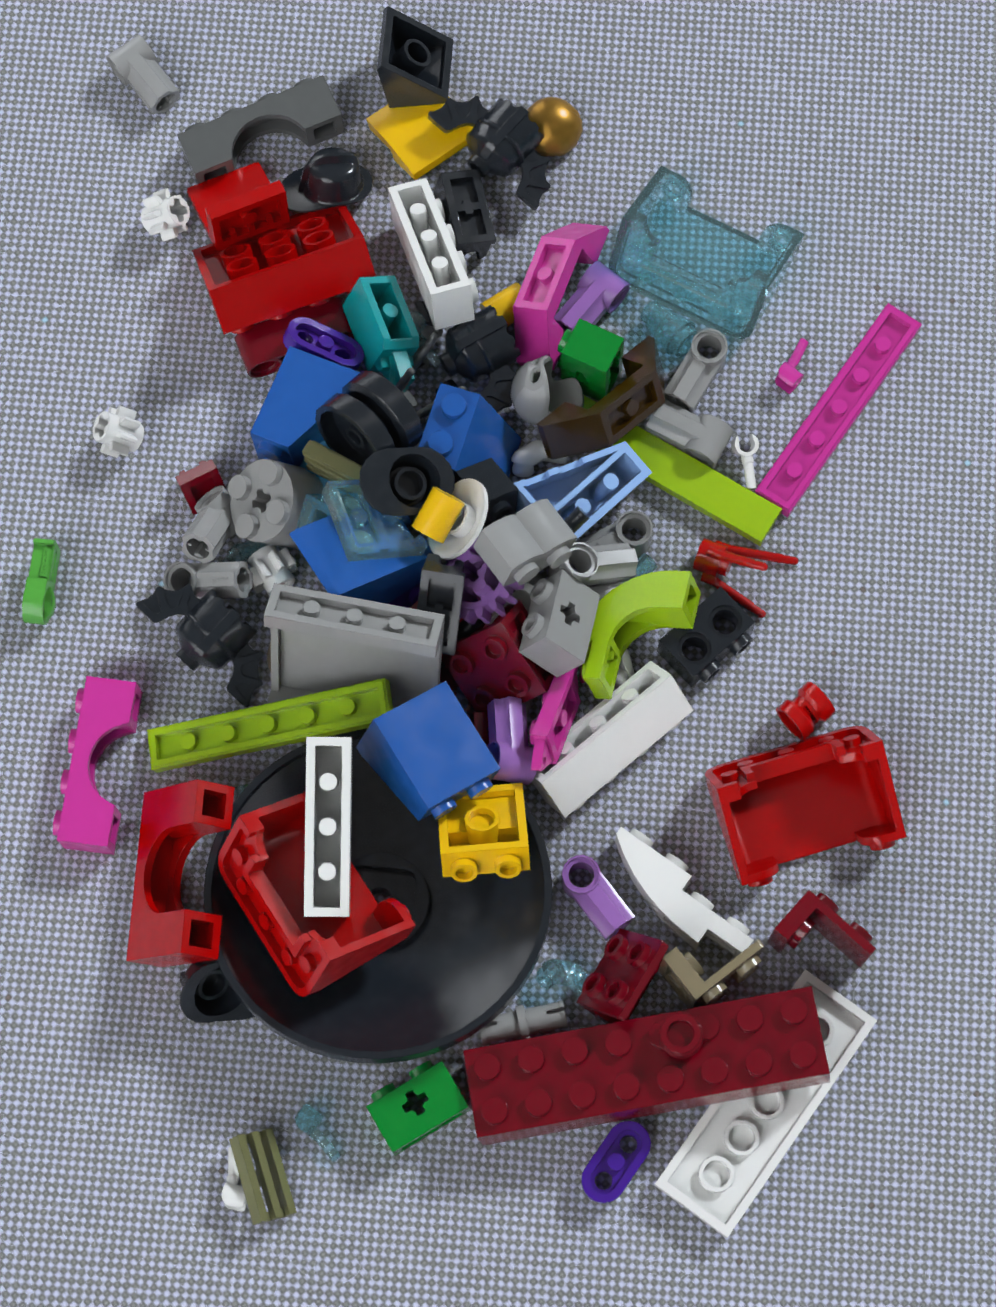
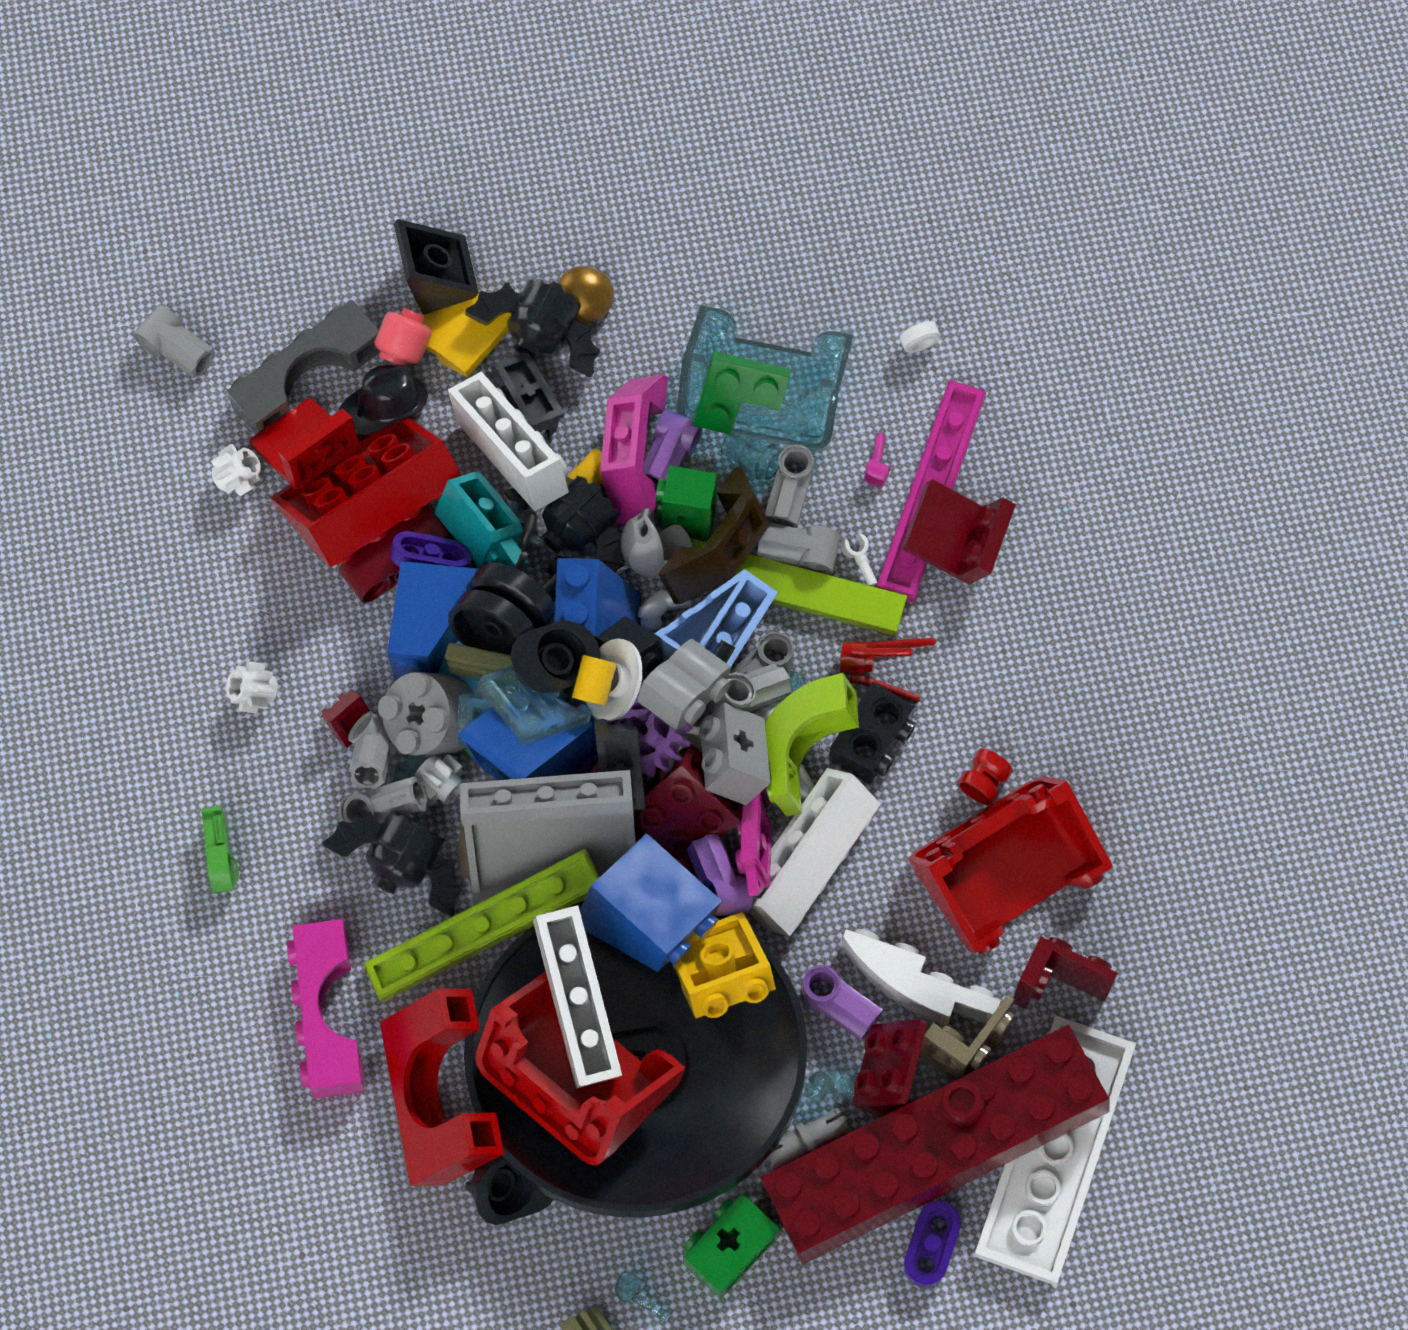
camera: 20 degrees left, 5 degrees down
(361, 125) = (403, 337): none -> coral head
(666, 251) = (734, 381): none -> green plate
(850, 458) = (957, 532): none -> dark red bracket
(871, 252) = (920, 337): none -> white tile

